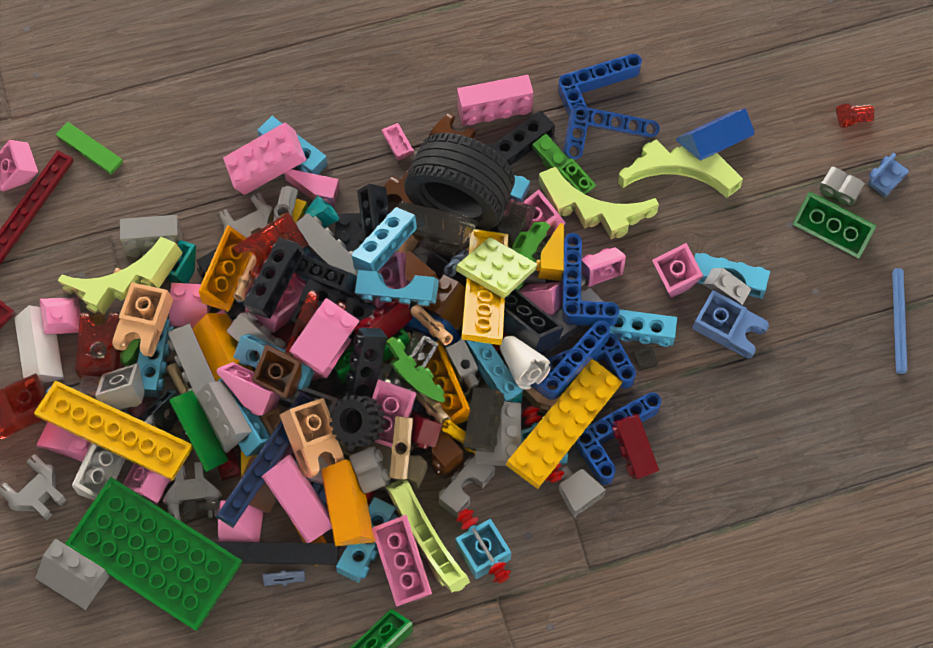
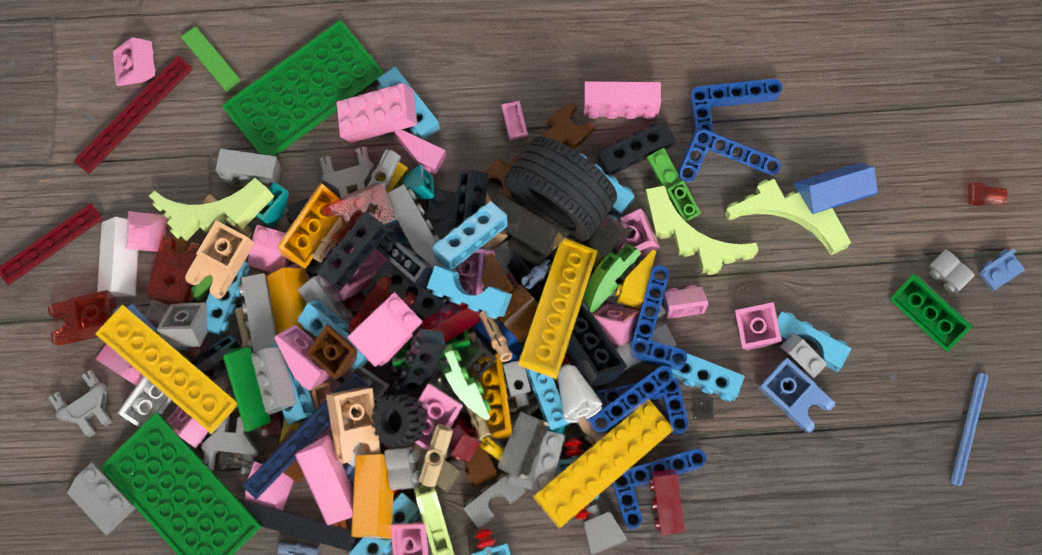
camera: 15 degrees right, 10 degrees up
(100, 352) = (172, 283): clear smoke hinge -> none
(186, 156) = (303, 90): none -> green plate
(496, 267) = (574, 289): yellowish green plate -> none

